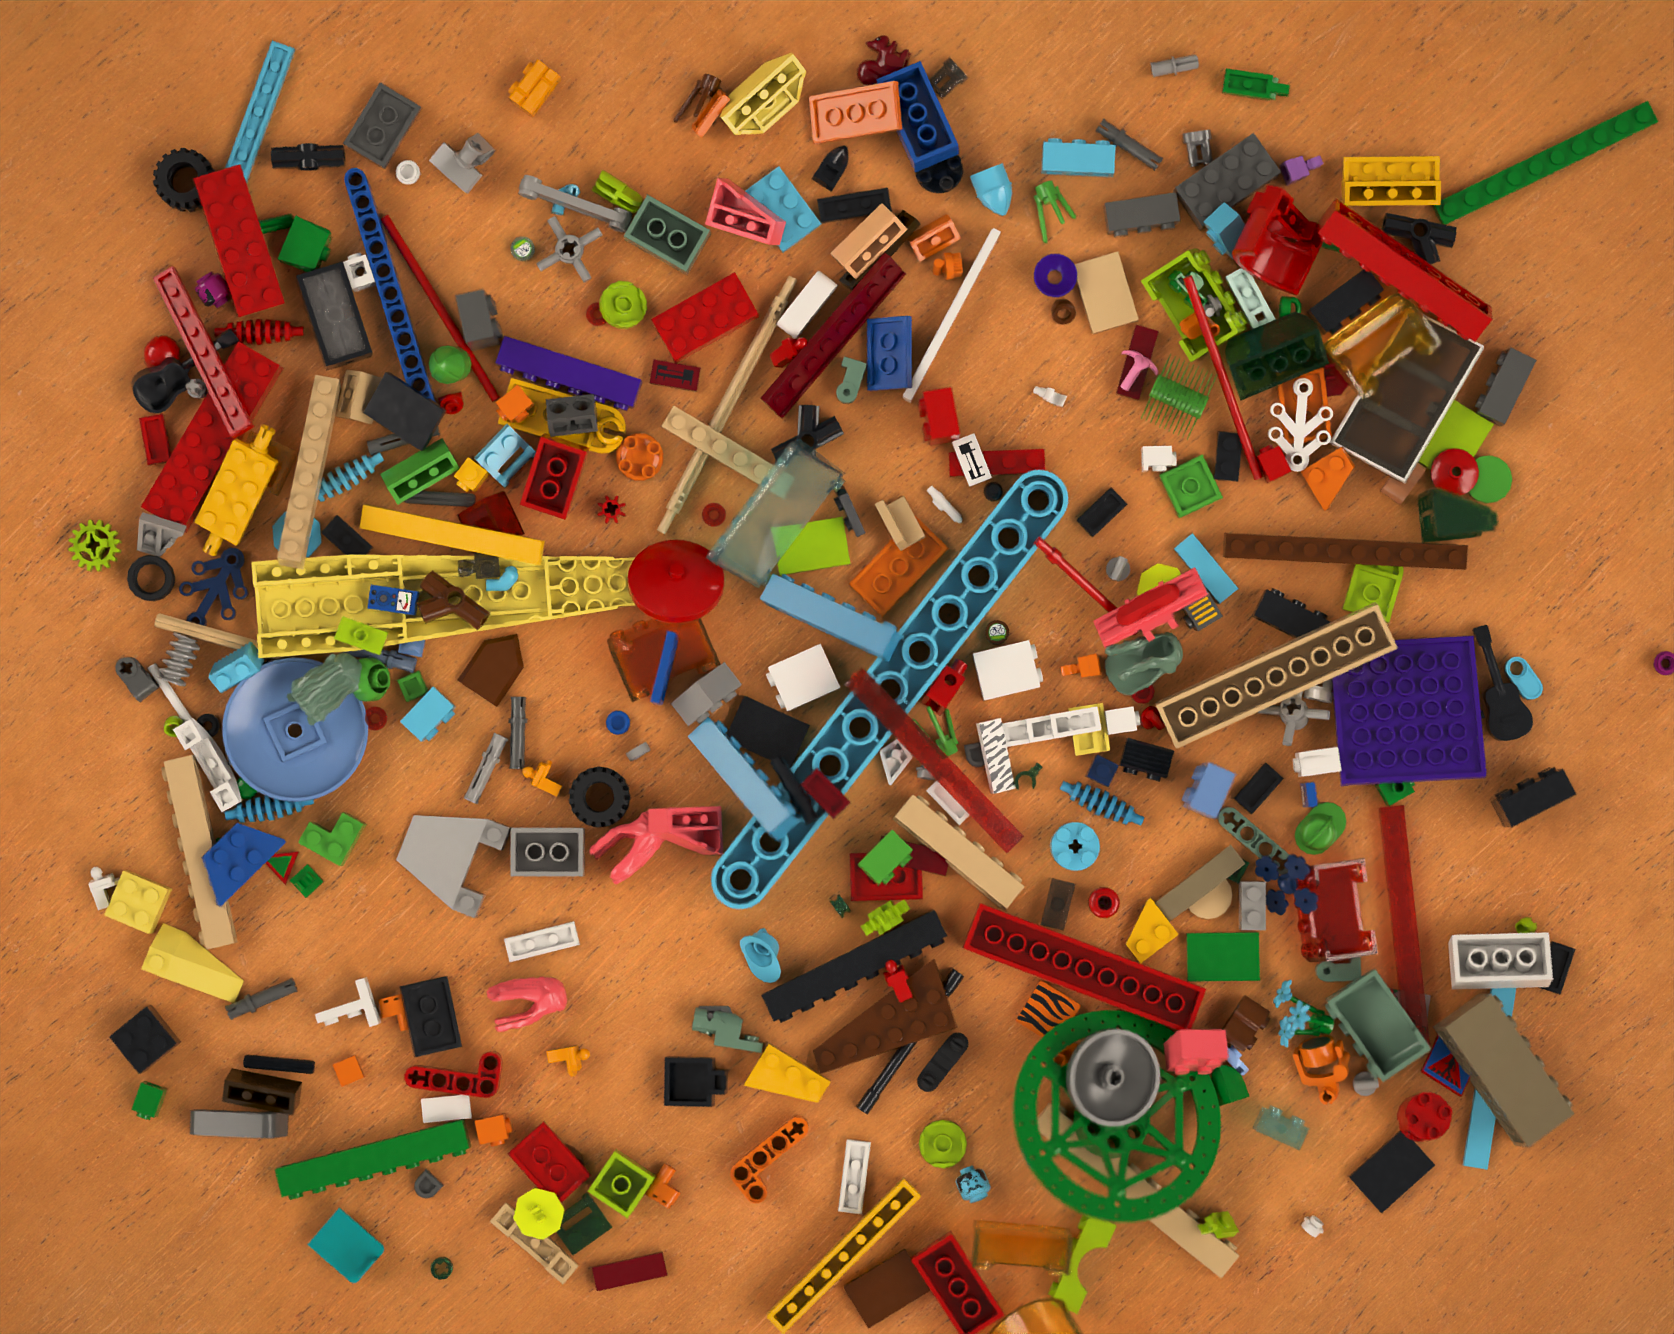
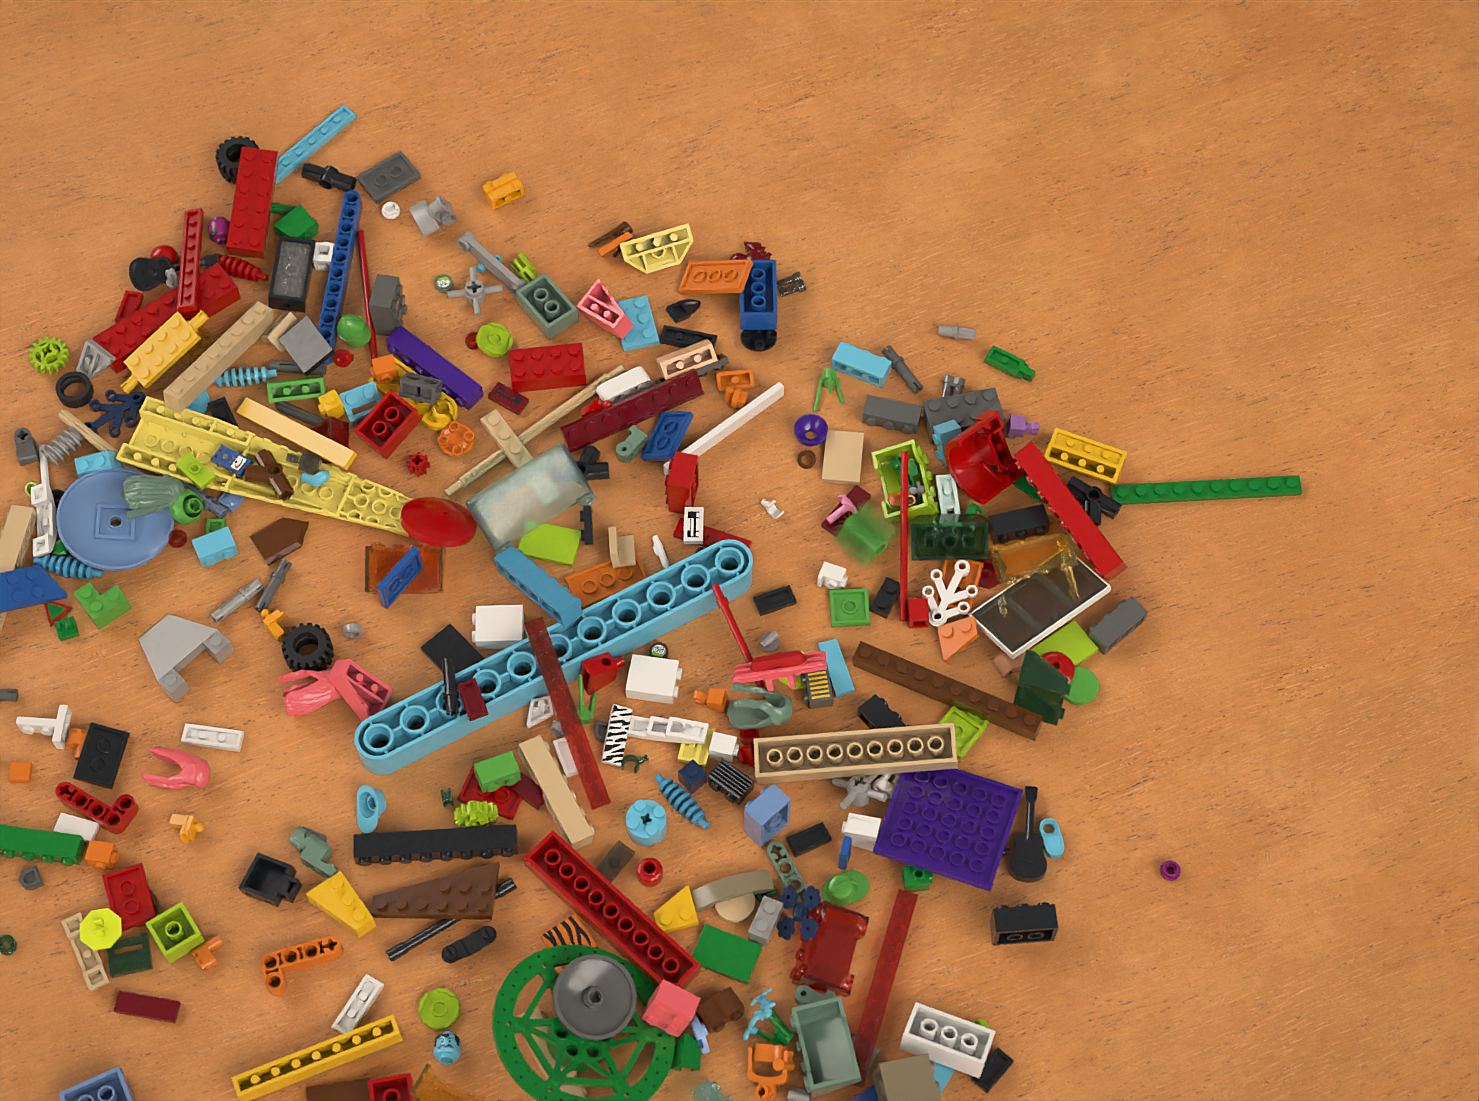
camera: 25 degrees right, 25 degrees down
(547, 852) = (249, 671): light grey brick -> none
(618, 722) = (349, 608): blue tile -> none
(707, 695) = (420, 606): light grey brick -> none
(743, 778) = (419, 668): dark azure brick -> none
(897, 978) = (462, 863): red piece -> none
(993, 189) = (791, 358): medium azure helmet -> none

